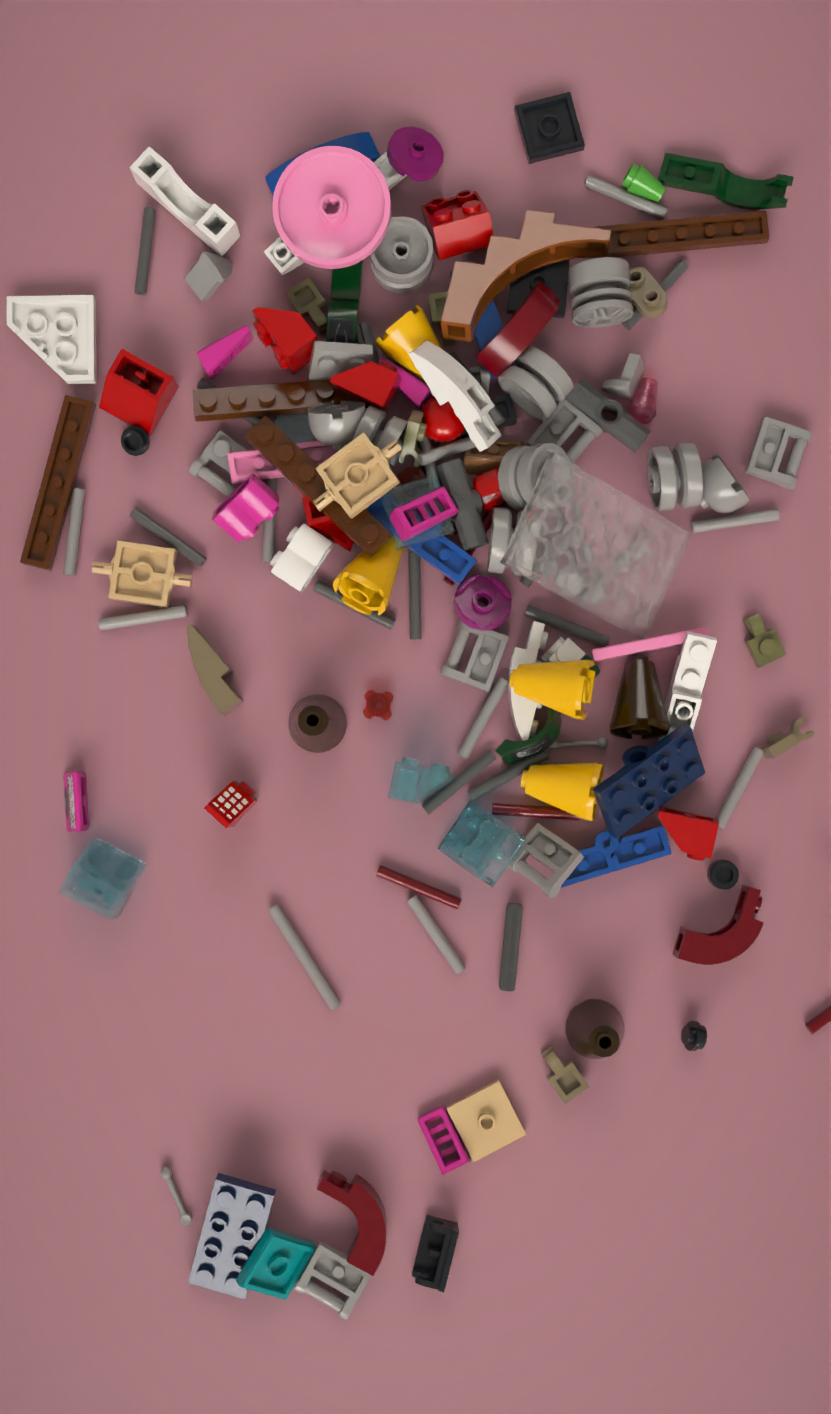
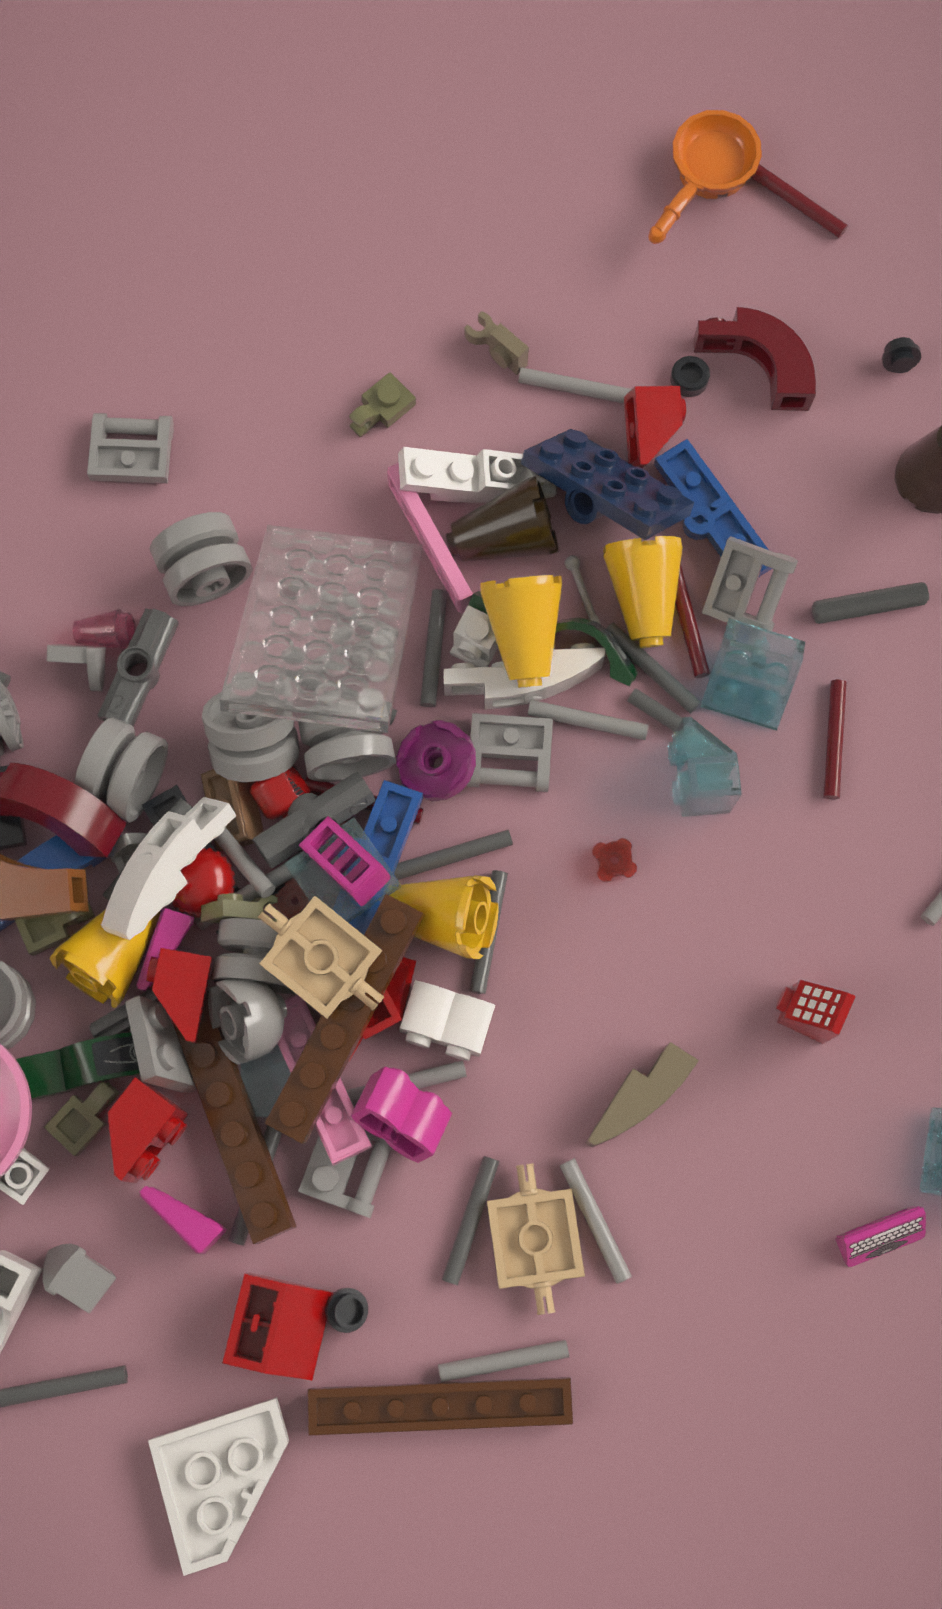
camera: 105 degrees left, 10 degrees down
(329, 729) = (664, 934): dark brown cone -> none
(436, 934) = (887, 700): light grey bar -> none
(562, 425) = (181, 731): light grey plate -> none
(721, 487) = (197, 495): light grey cylinder -> none
(734, 520) = (234, 479): light grey bar -> none

